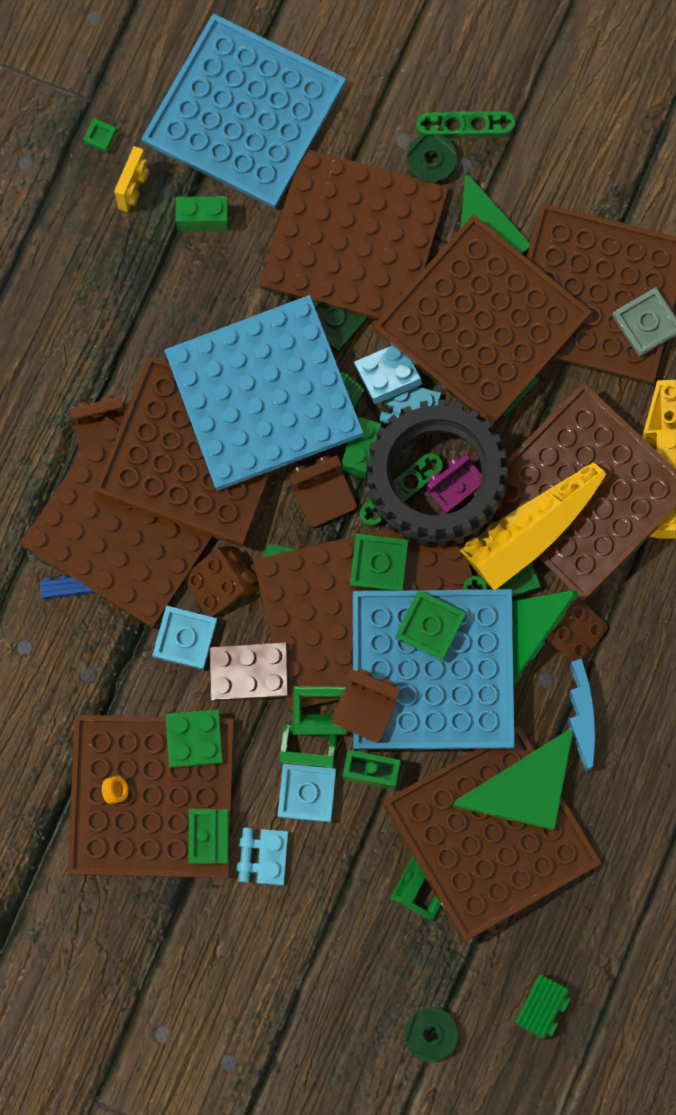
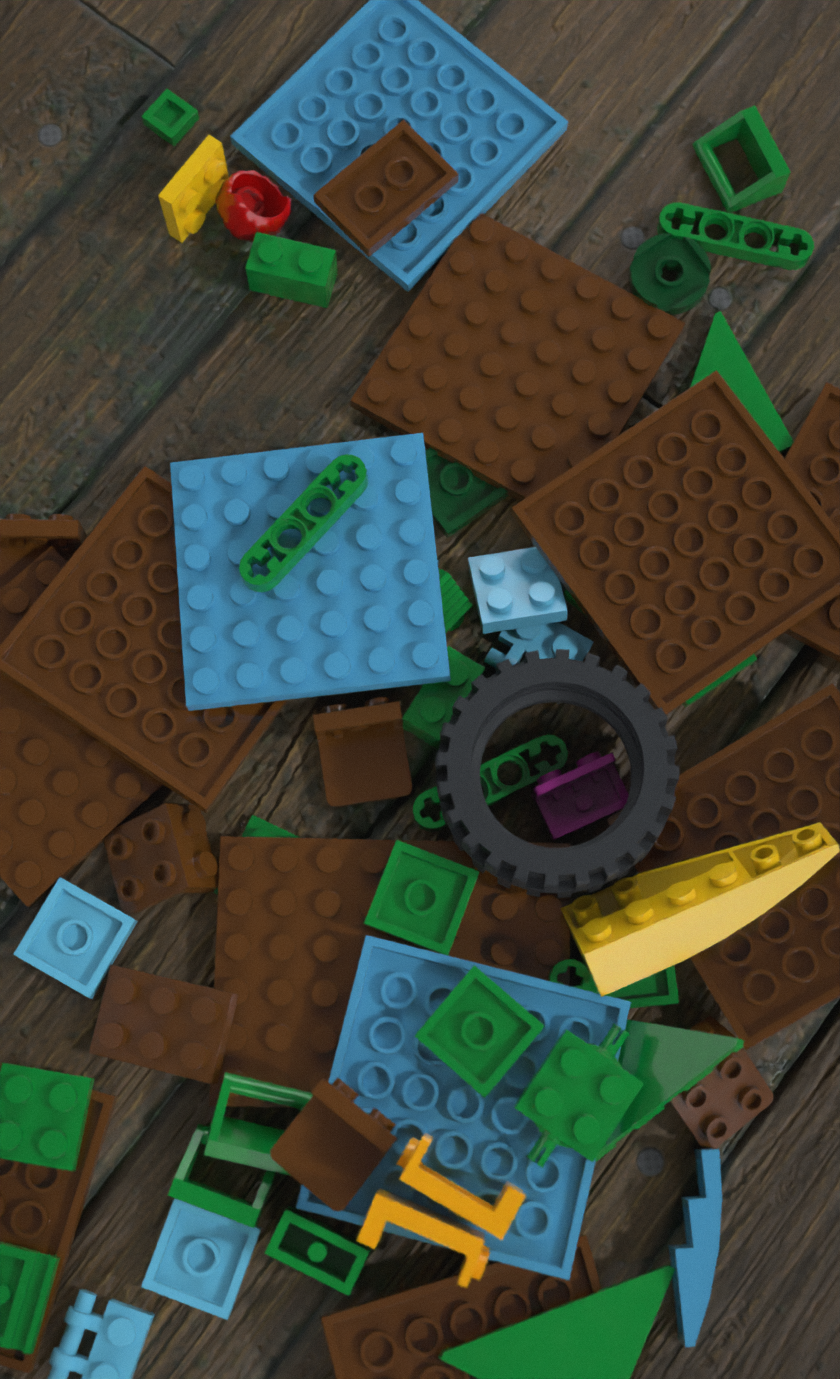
camera: 10 degrees right, 0 degrees up
(167, 180) = (252, 205): none -> red hair
(246, 149) = (386, 188): none -> reddish brown plate
(255, 365) = (298, 518): none -> green beam
(428, 731) = (429, 1224): none -> light orange panel
(440, 713) = (489, 1217): none -> light orange panel
(468, 68) = (759, 149): none -> green tile
(494, 646) = (578, 1095): none -> green plate

